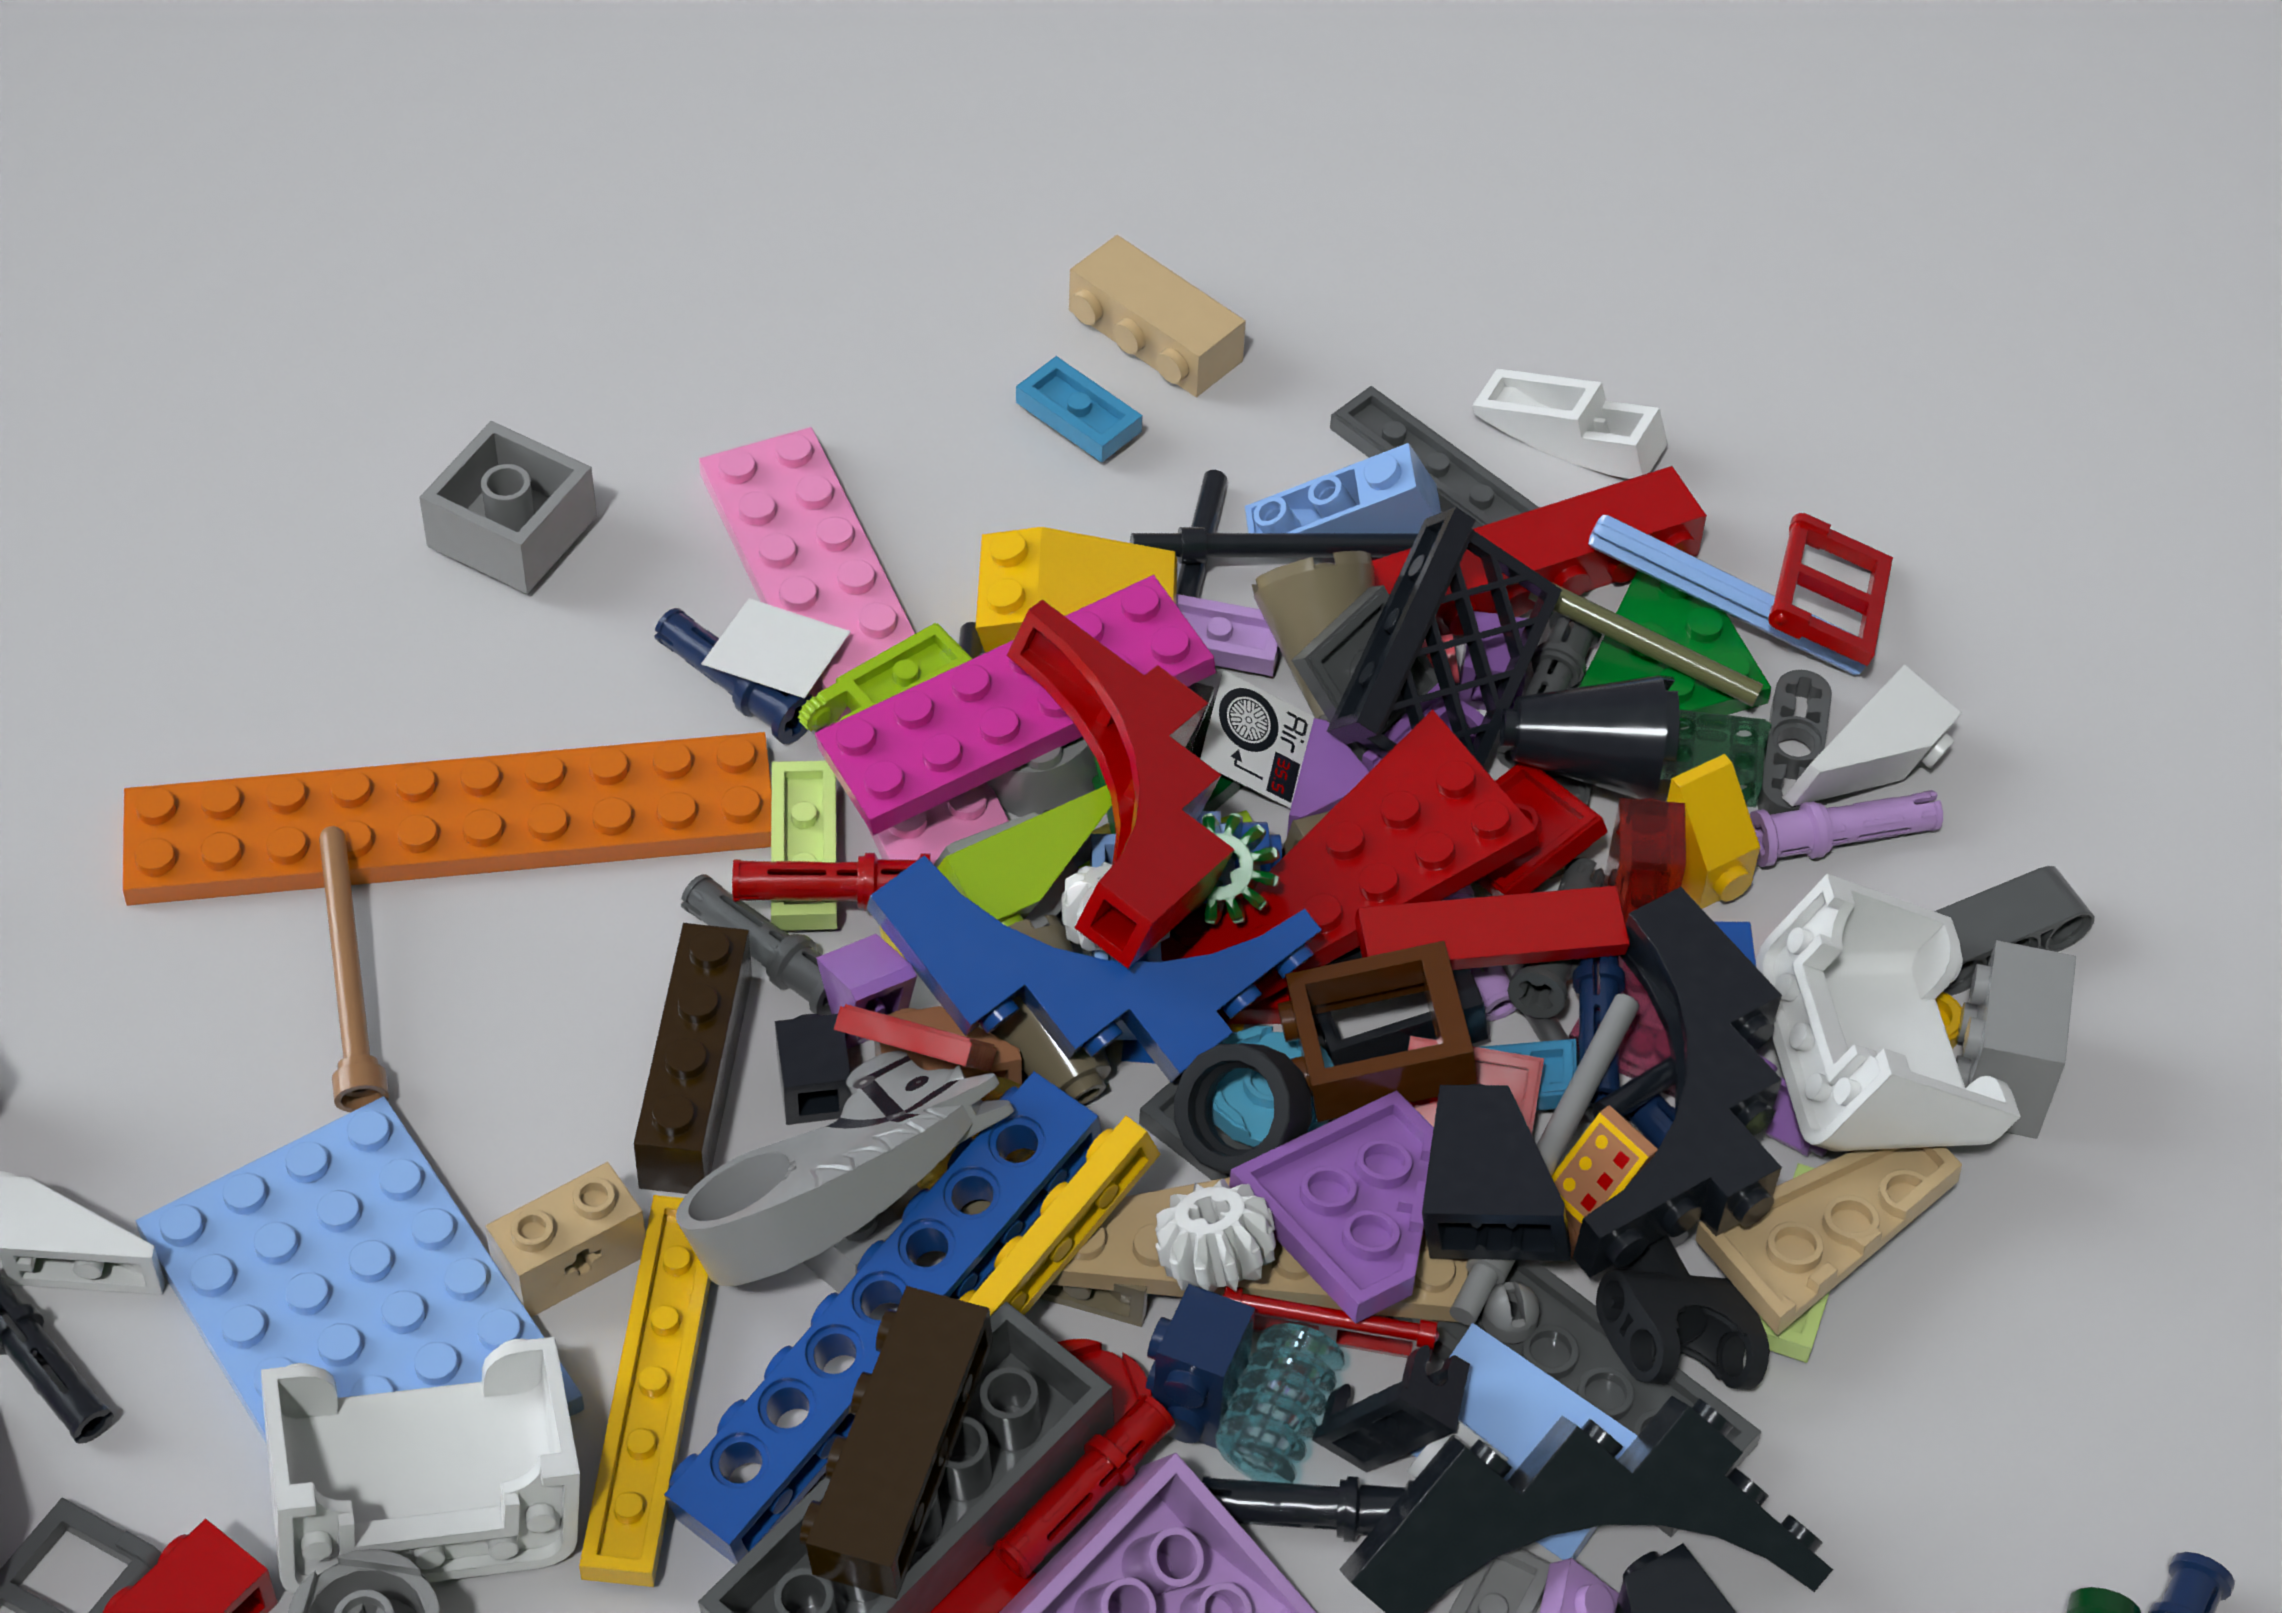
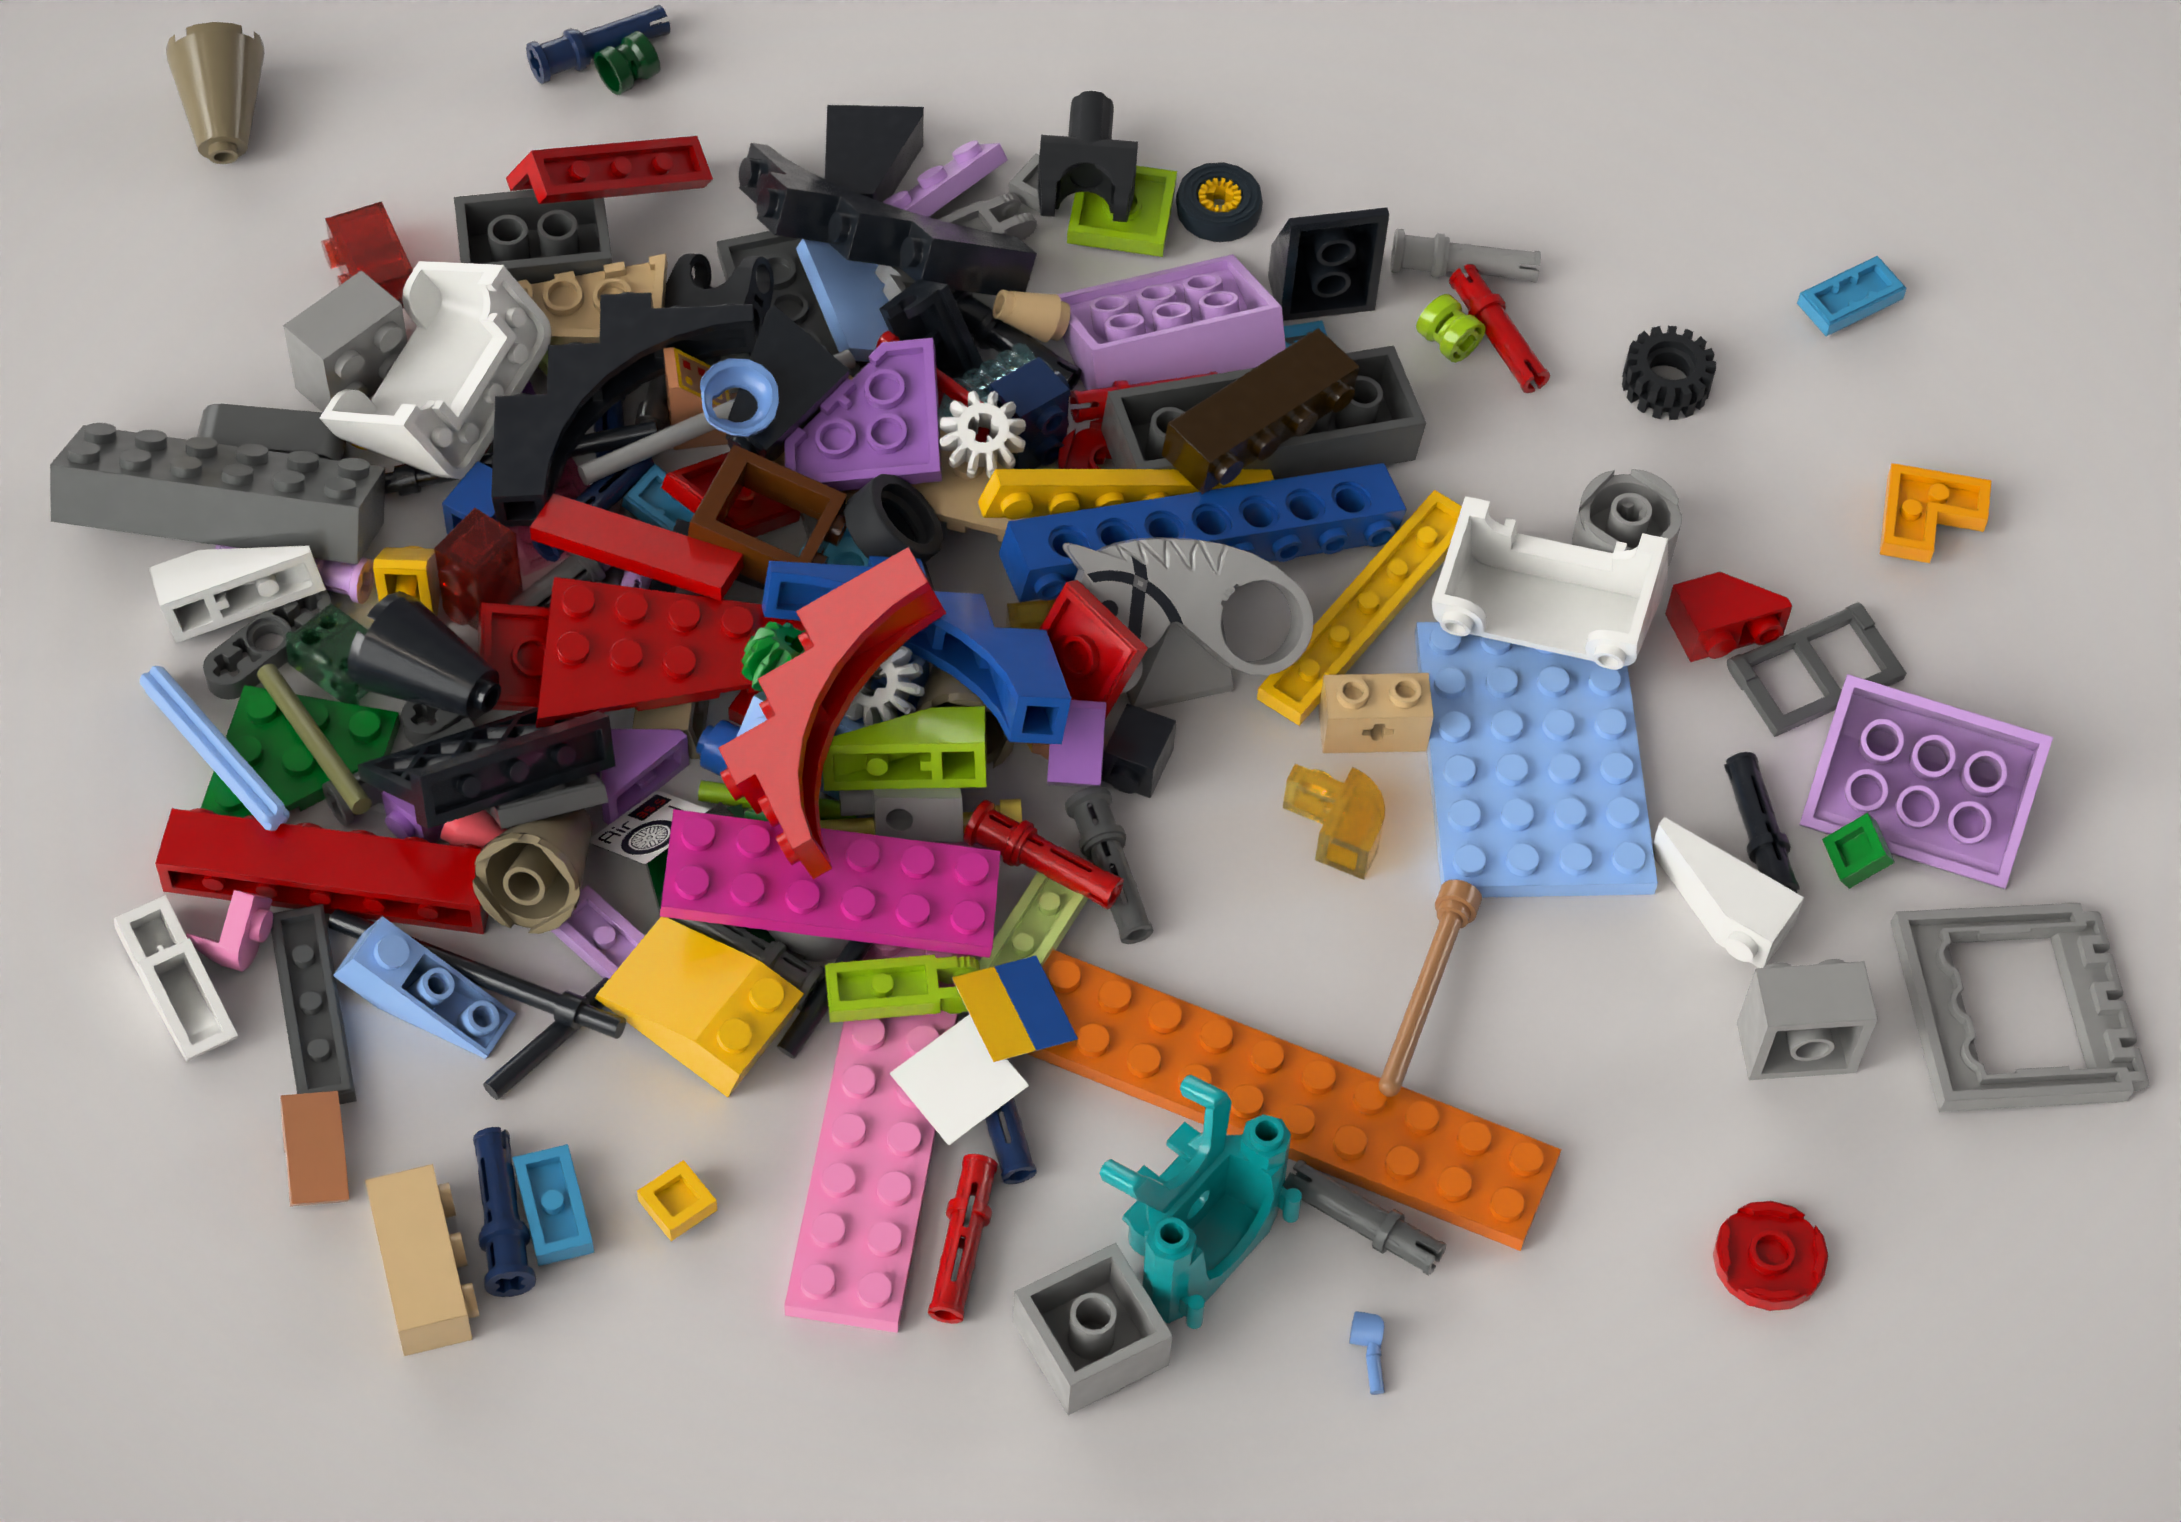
camera: 150 degrees left, 5 degrees up
(245, 649) = (1368, 1331): none -> medium blue hand
(313, 739) = (1382, 1227): none -> dark grey pin
(464, 635) = (1206, 1205): none -> teal piece
(534, 1119) = (1349, 814): none -> clear yellow brick
(693, 1058) = (1216, 795): dark brown brick -> none
(703, 593) = (976, 1181): none -> red pin
(761, 720) = (1014, 1008): none -> sticker
(971, 460) = (677, 1200): none -> yellow plate
(1105, 366) = (503, 1233): none -> dark blue pin
(1303, 1524) = (1033, 313): none -> tan cone
(1324, 352) = (314, 1148): none -> nougat slope
(1494, 1063) = (744, 375): none -> medium blue piece
(1554, 468) = (244, 928): none -> bright pink plate
(1798, 622) = (115, 699): red window -> none
(1939, 1395) = (612, 170): none -> red fence
(1949, 1288) = (533, 237): none -> dark grey brick
(1982, 806) = (217, 492): none -> dark grey brick
(2112, 1190) = (368, 243): none -> clear red brick

